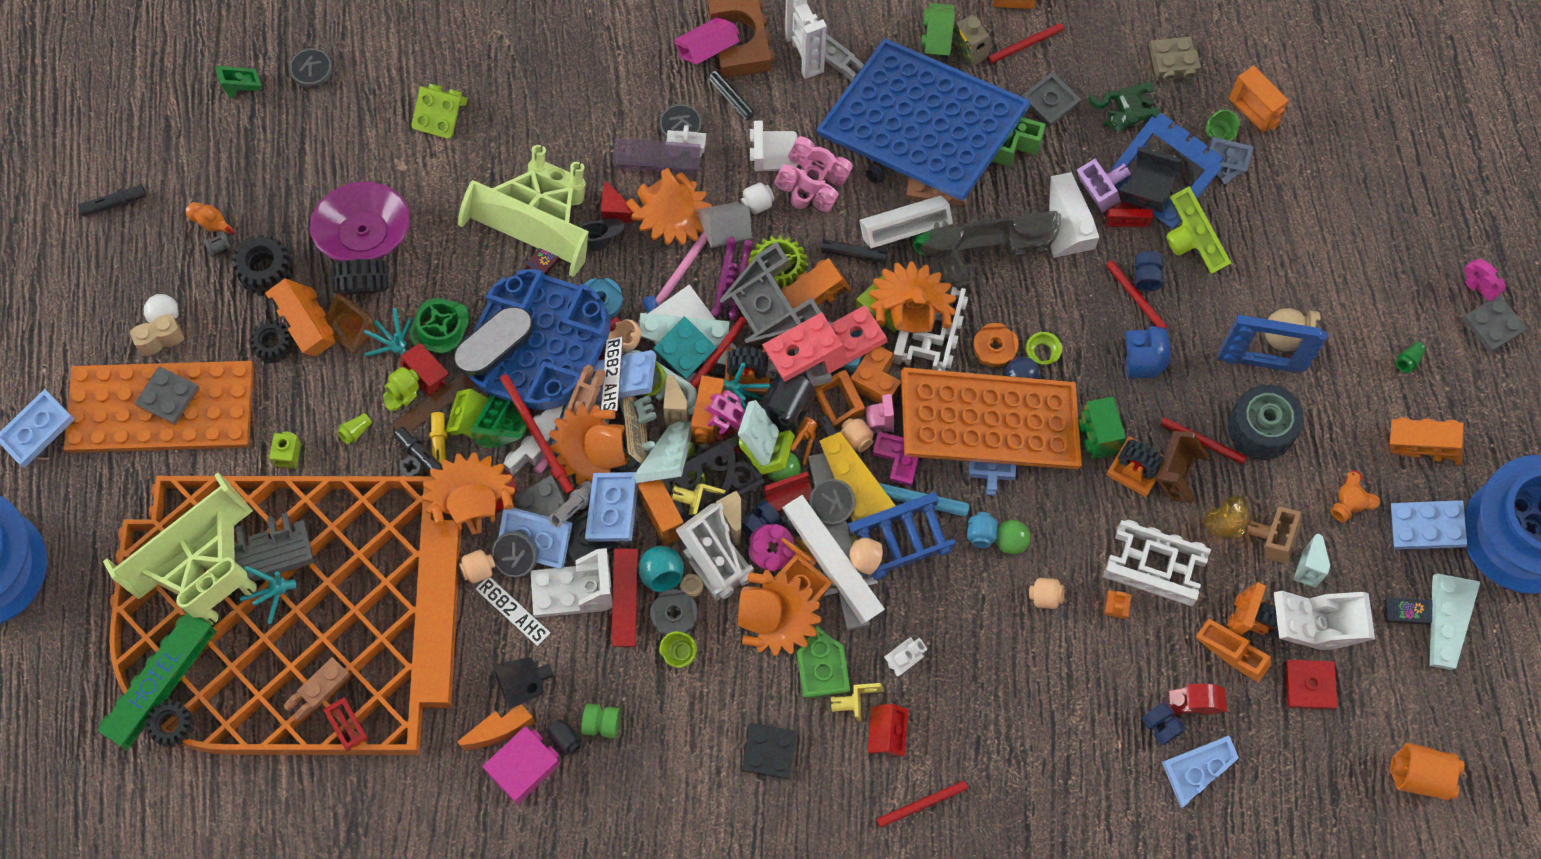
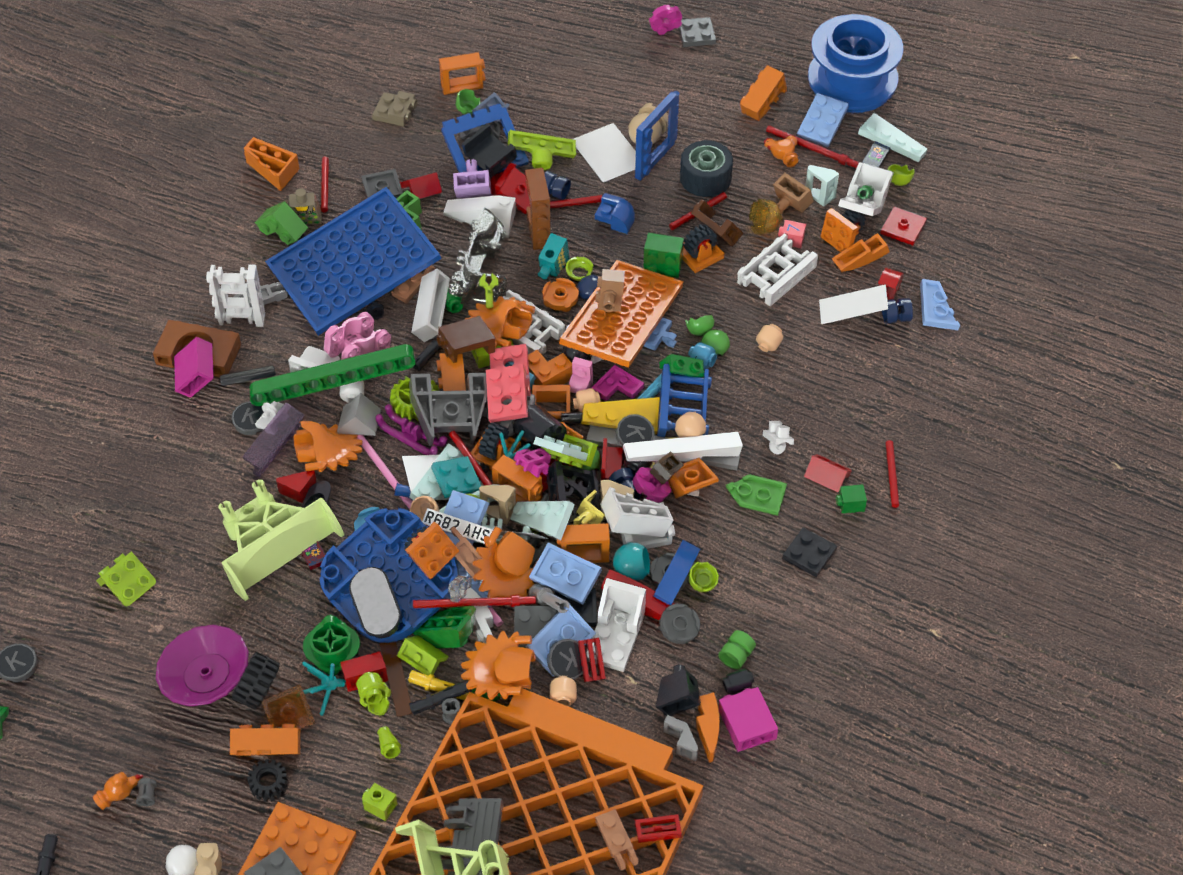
camera: 65 degrees left, 15 degrees down
(258, 250) = (195, 774): black tyre -> none
(276, 587) = (511, 838): teal plant -> none
(467, 713) = (686, 744): none -> light grey slope
(510, 590) = (596, 641): none -> red tile
(513, 611) = (611, 684): white sticker -> none
(541, 410) = (458, 588): none -> clear plate
(561, 360) = (430, 549): none -> orange plate
(611, 649) = (679, 624): none -> dark grey tile
(674, 619) = (676, 572): none -> blue slope
(691, 585) = (654, 552): tan tile -> none
(753, 171) = (332, 375): none -> green beam
(777, 612) = (708, 496): orange piece -> none
(788, 552) = (666, 467): none -> dark brown slope
(854, 702) = (797, 482): light yellow bracket -> none
(856, 273) = (464, 337): none -> reddish brown panel
(859, 770) = (851, 499): none -> green brick
(934, 272) = (488, 289): none -> lime bar
(946, 516) = (684, 365): none -> green bracket
(995, 392) = (611, 290): none -> medium nougat brick
(1026, 509) = (701, 325): none -> bright green hair
(1037, 314) = (553, 256): none -> teal torso
(1071, 137) = (423, 185): none -> red panel
(1081, 266) = (539, 211): none -> dark orange arch
(1117, 604) = (795, 304): orange tile -> none
(1119, 237) = (516, 187): none -> red plate
(1130, 102) = (418, 145): dark green animal -> none
(1146, 669) = (853, 304): none -> white sticker
(1222, 559) = (795, 232): none -> coral brick
(1239, 293) = (607, 152): none -> white sticker
(1323, 617) = (861, 192): none -> green pin
(1380, 571) = (842, 159): none -> red bar
(1389, 649) = (901, 175): none -> lime hair
(1410, 358) = (698, 80): green cone -> none
(1426, 771) = (993, 187): orange cylinder -> none

